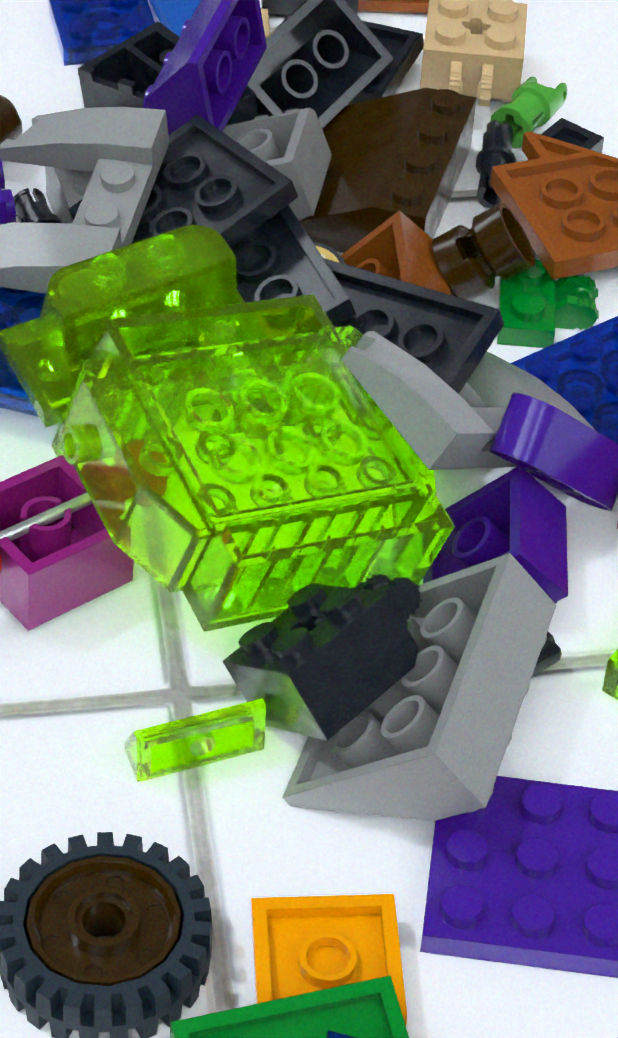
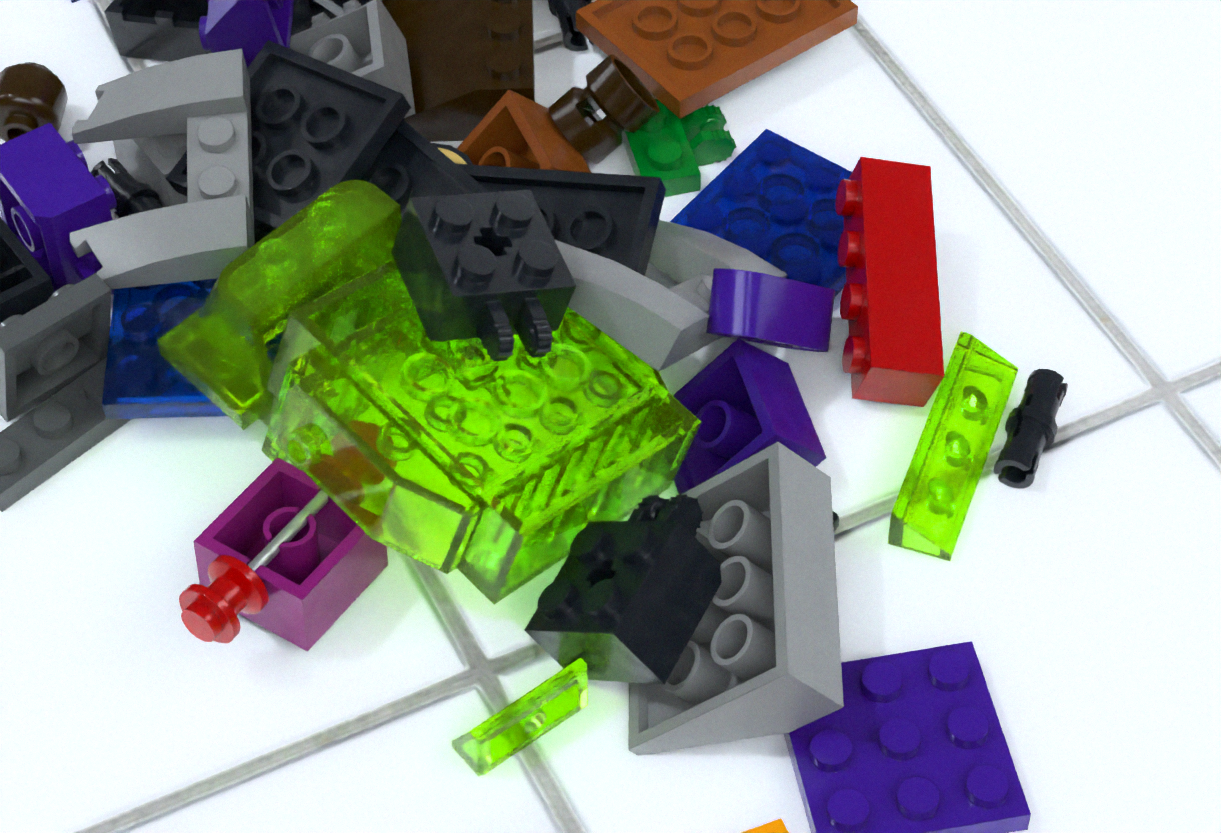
camera: 15 degrees left, 5 degrees up
(293, 332) = (484, 270): none -> black hinge

